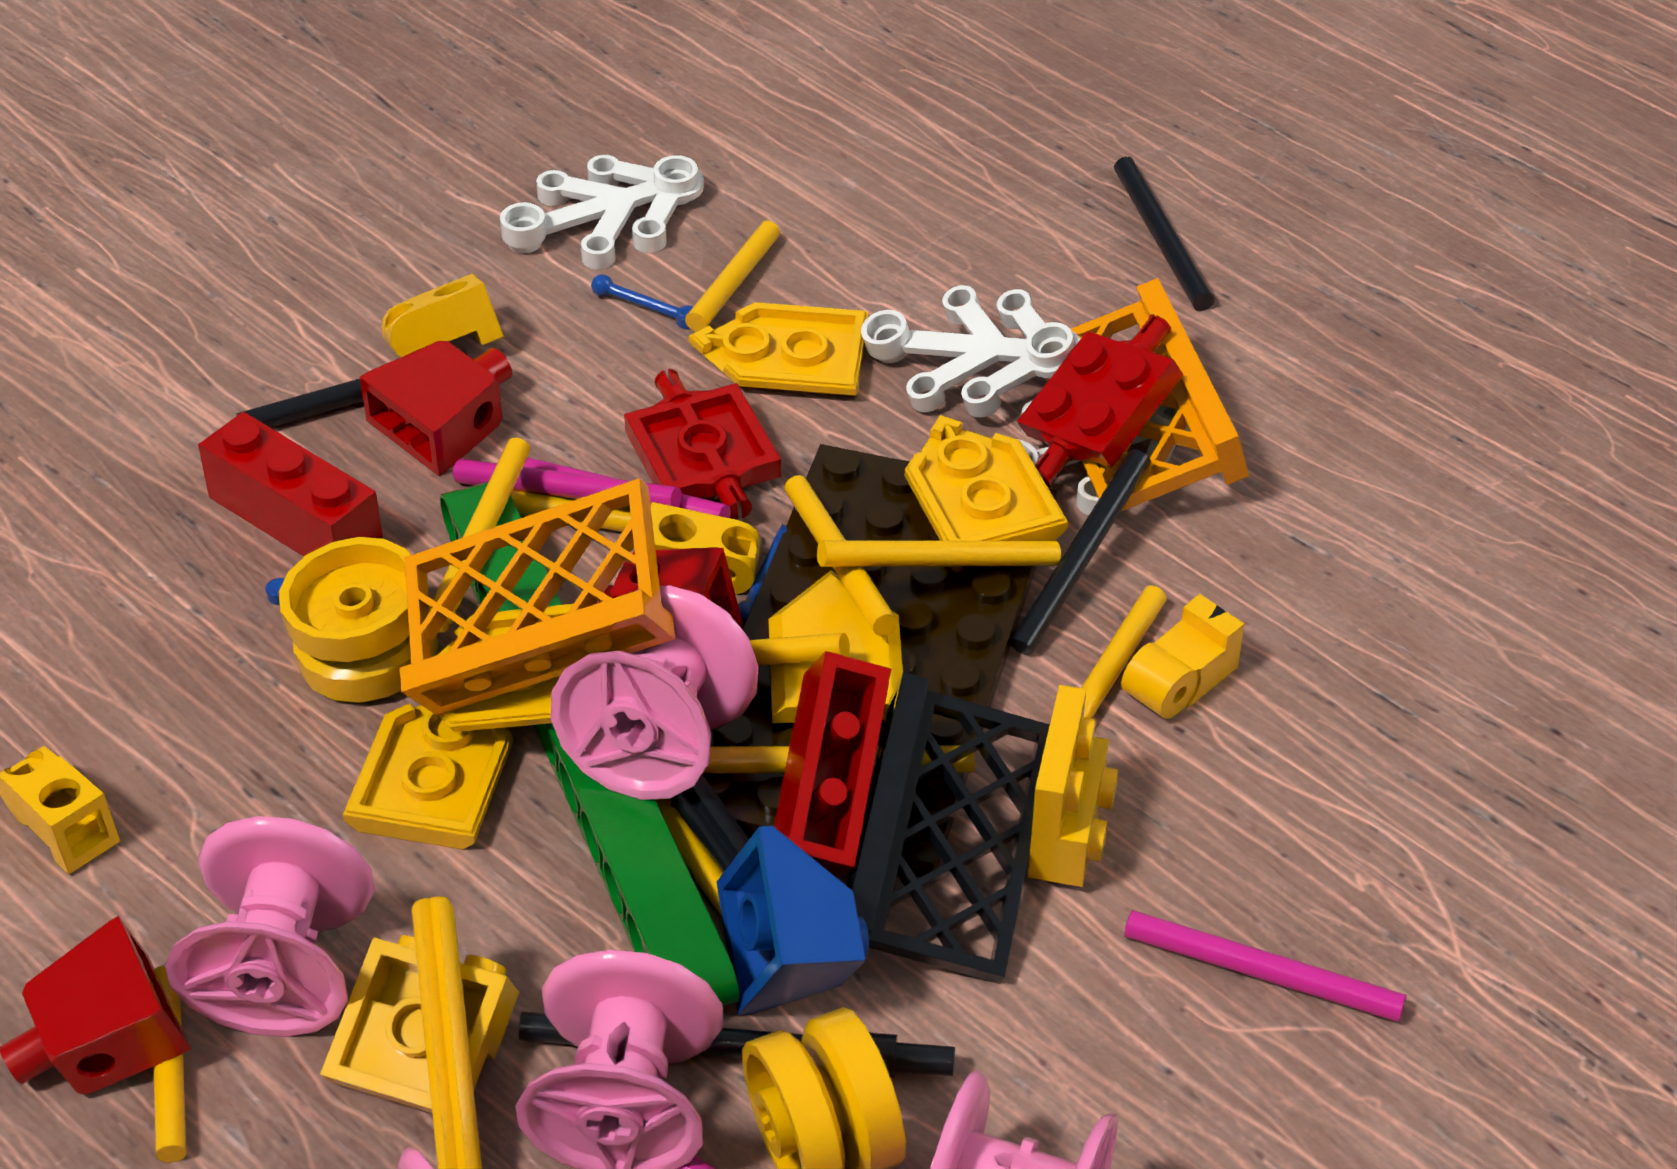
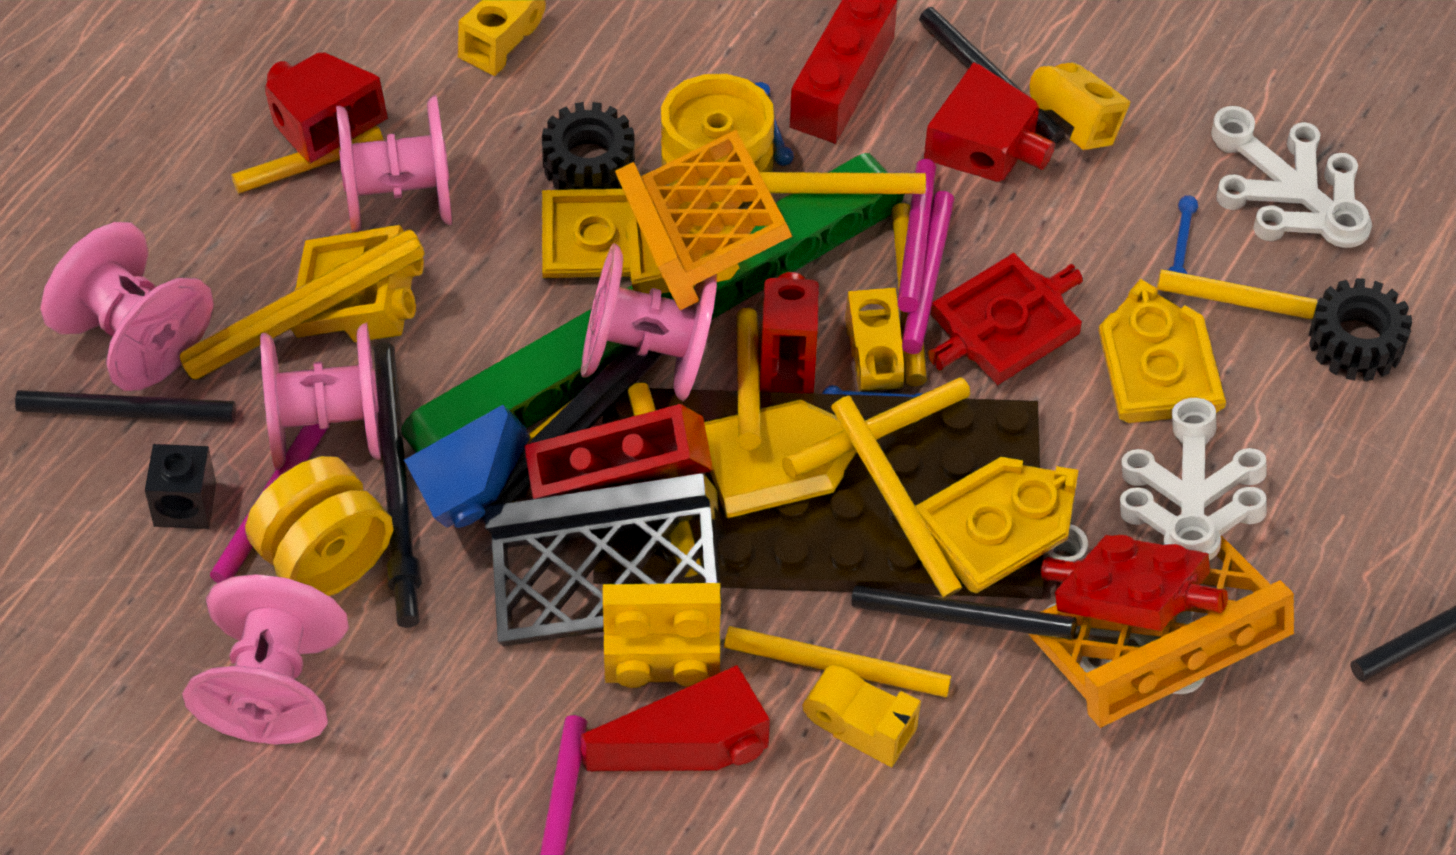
camera: 75 degrees right, 10 degrees up
(298, 728) = (587, 128): none -> black tyre
(814, 199) = (1353, 352): none -> black tyre
(1170, 794) = (686, 731): none -> red slope

